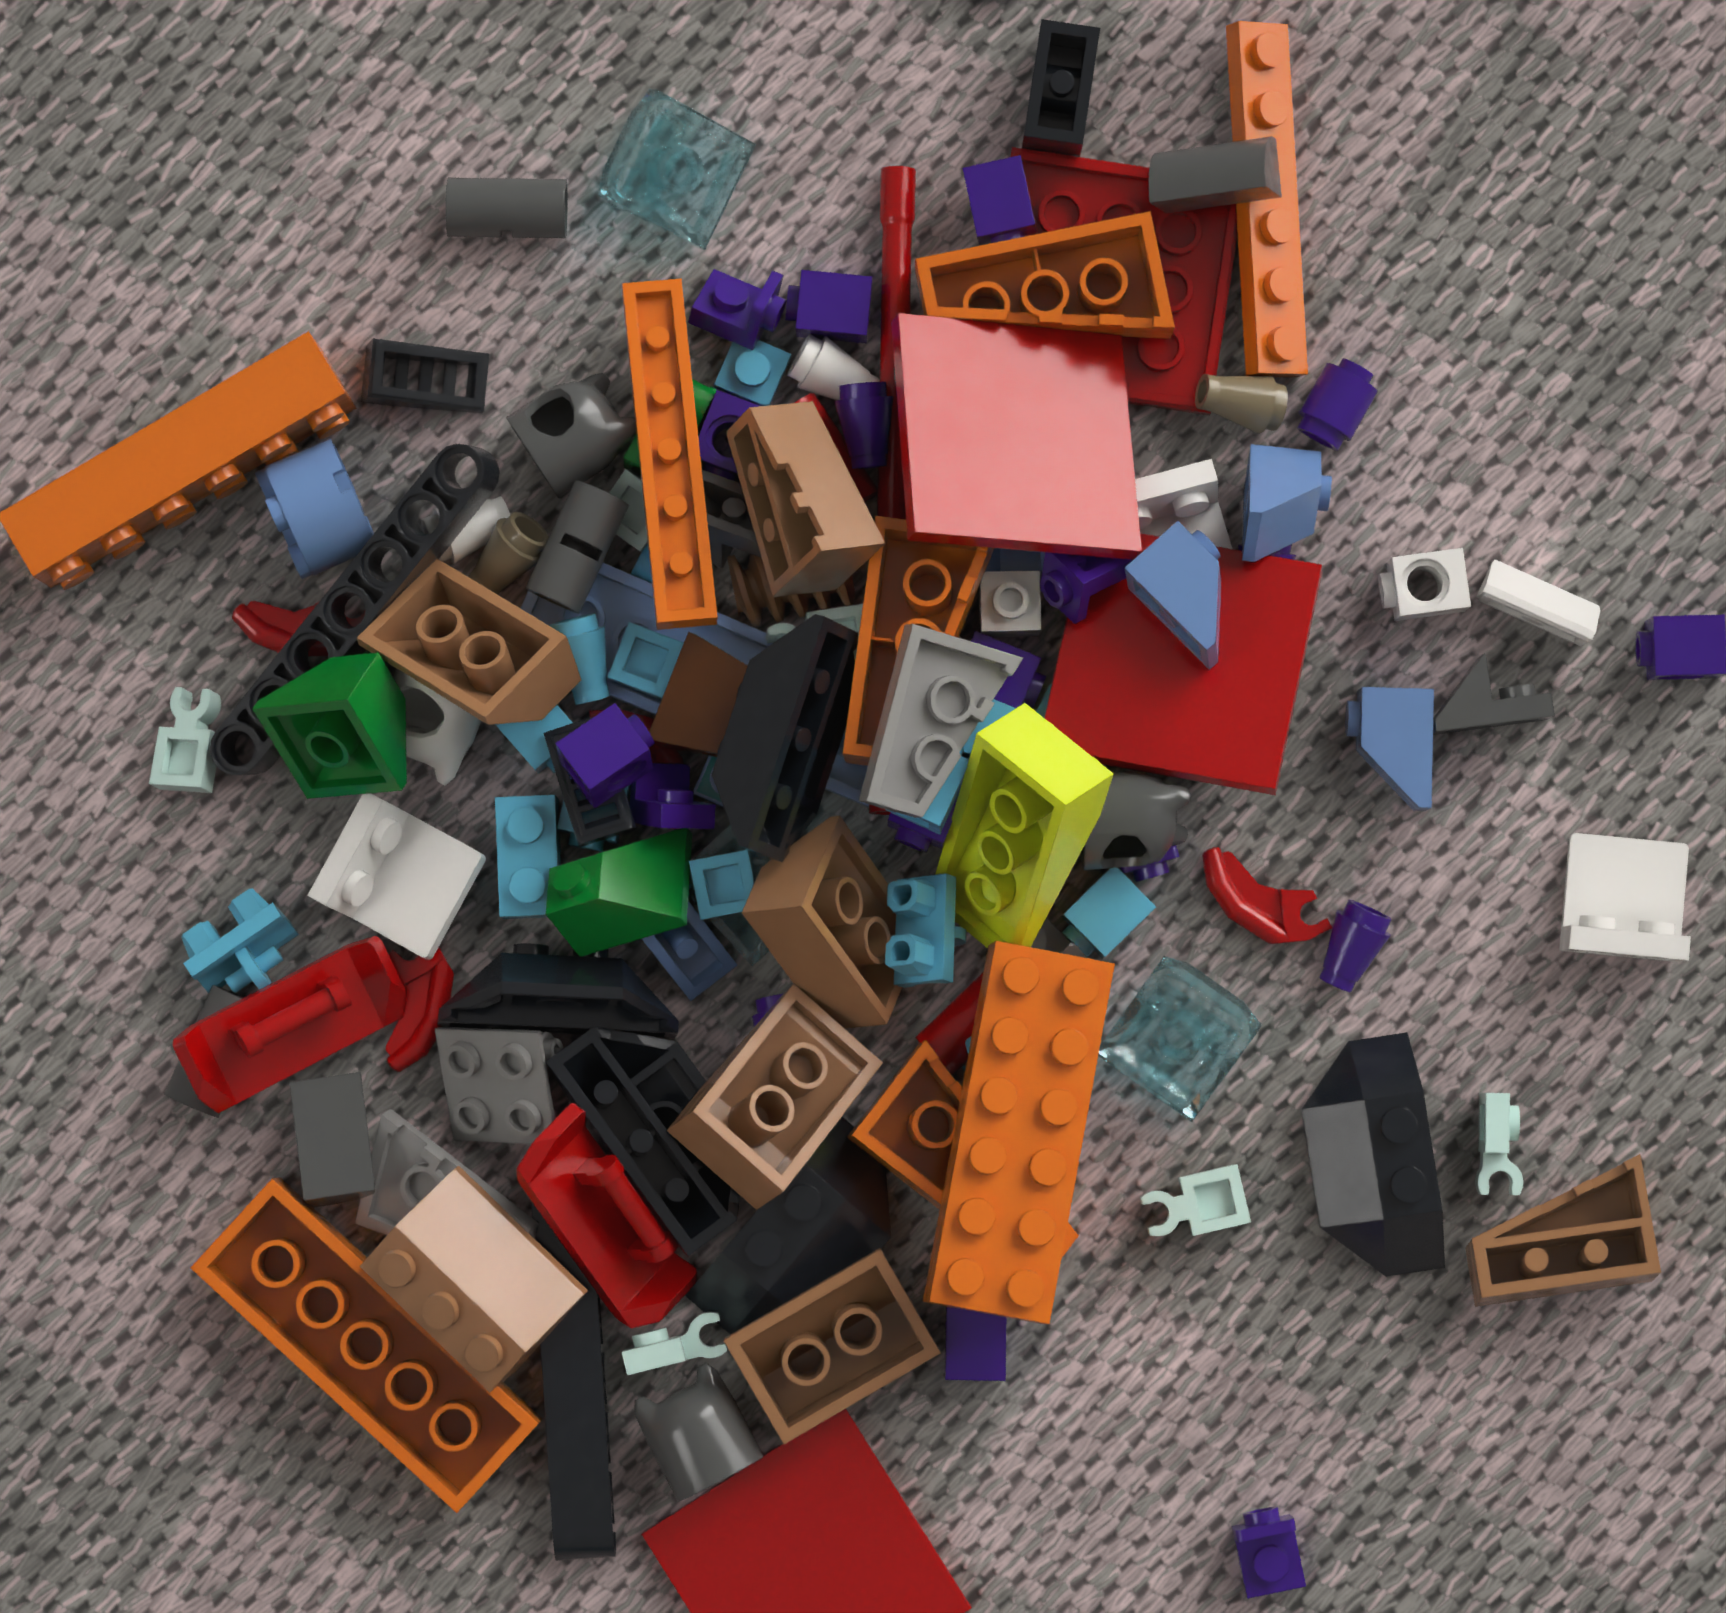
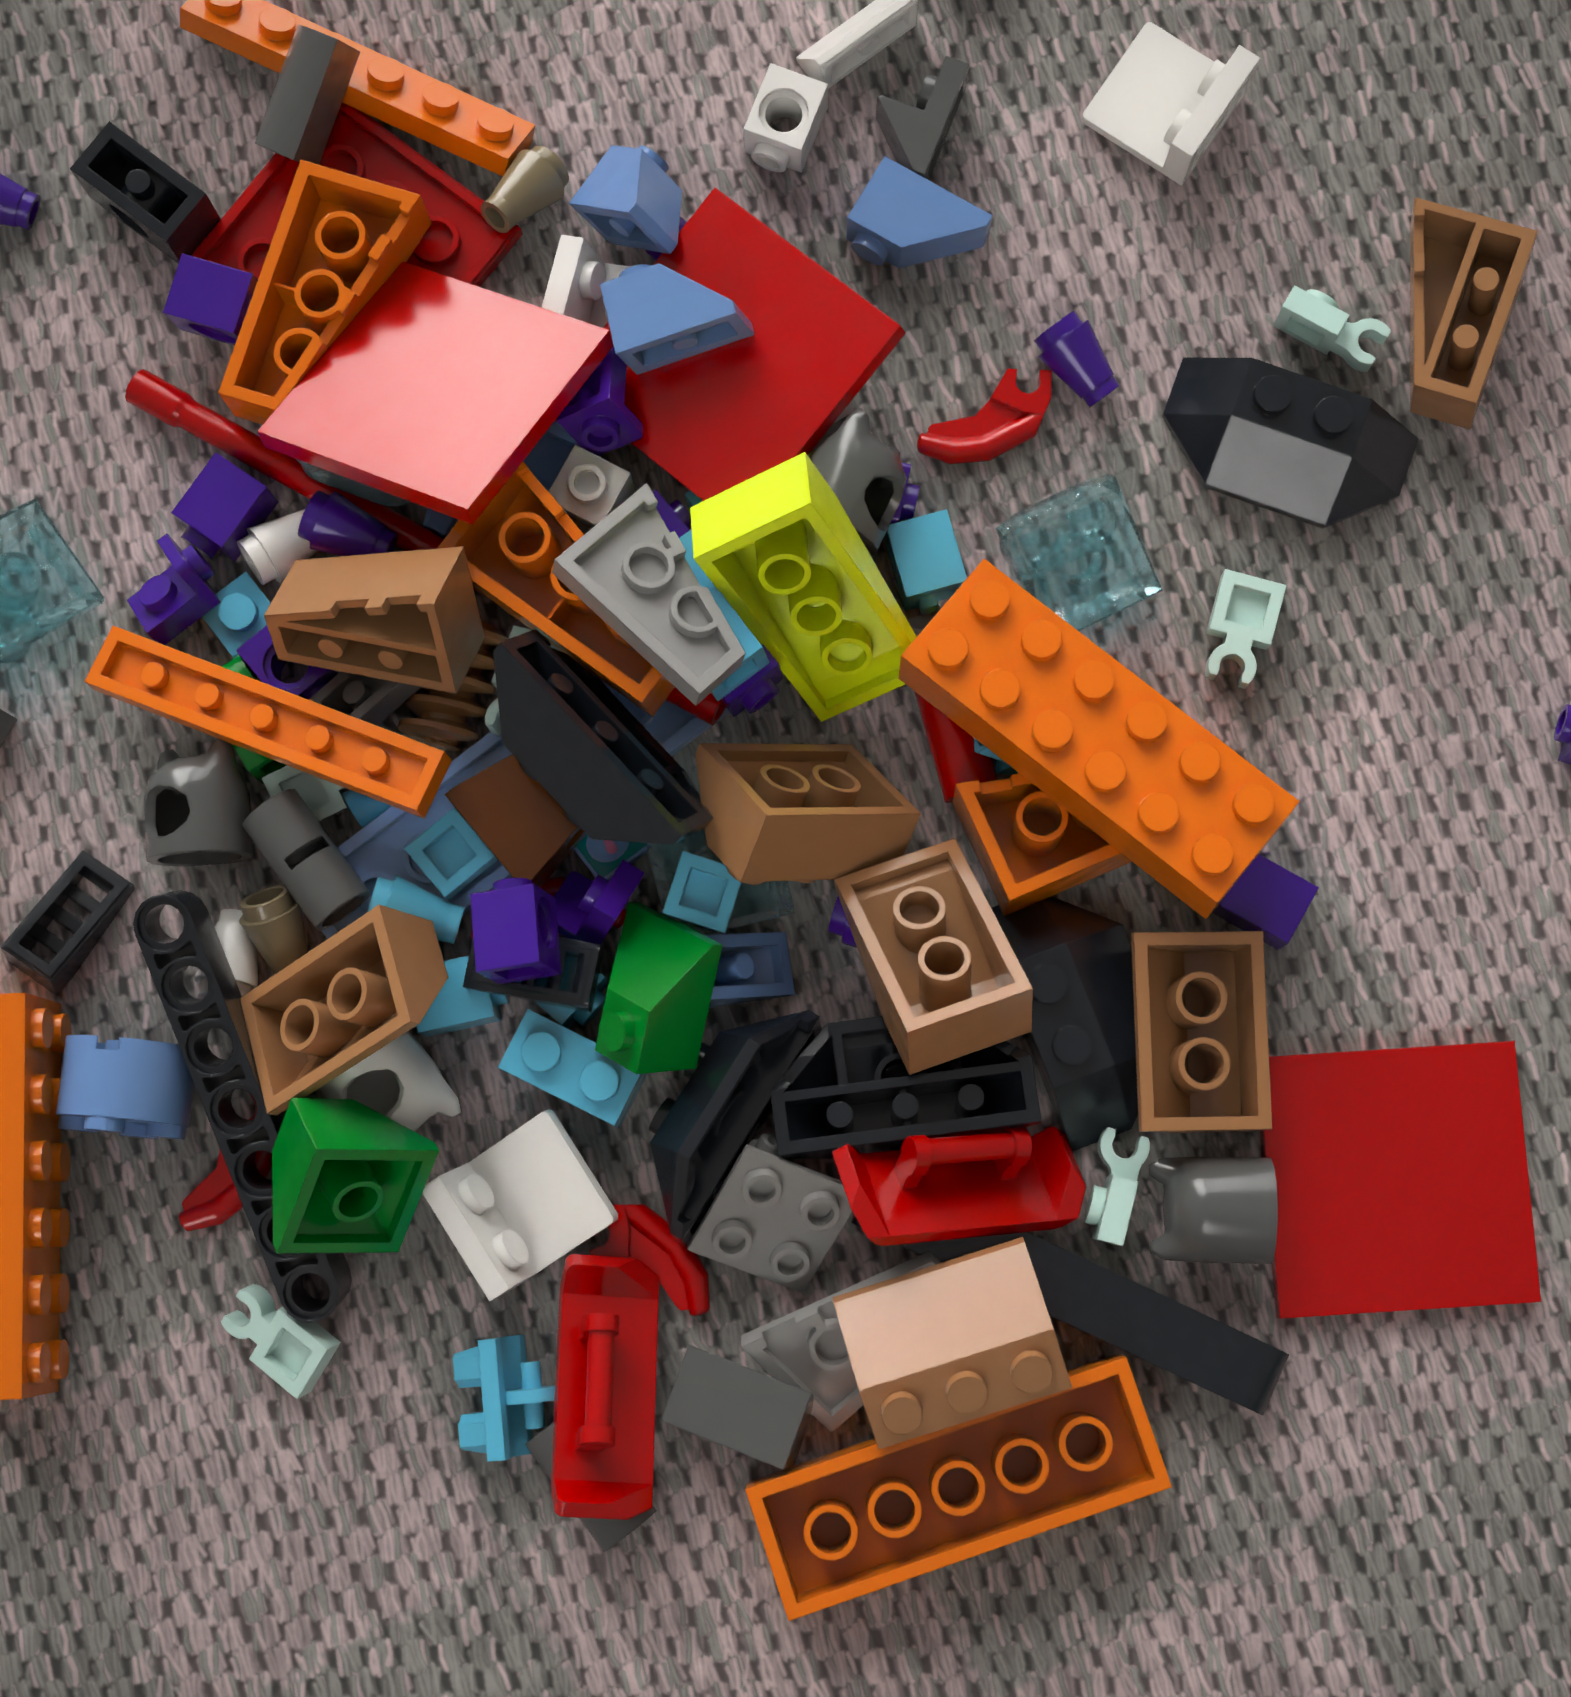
camera: 55 degrees left, 5 degrees down
(924, 930) = (851, 732): medium azure hips -> none
(1337, 404) = (576, 112): dark purple brick -> none

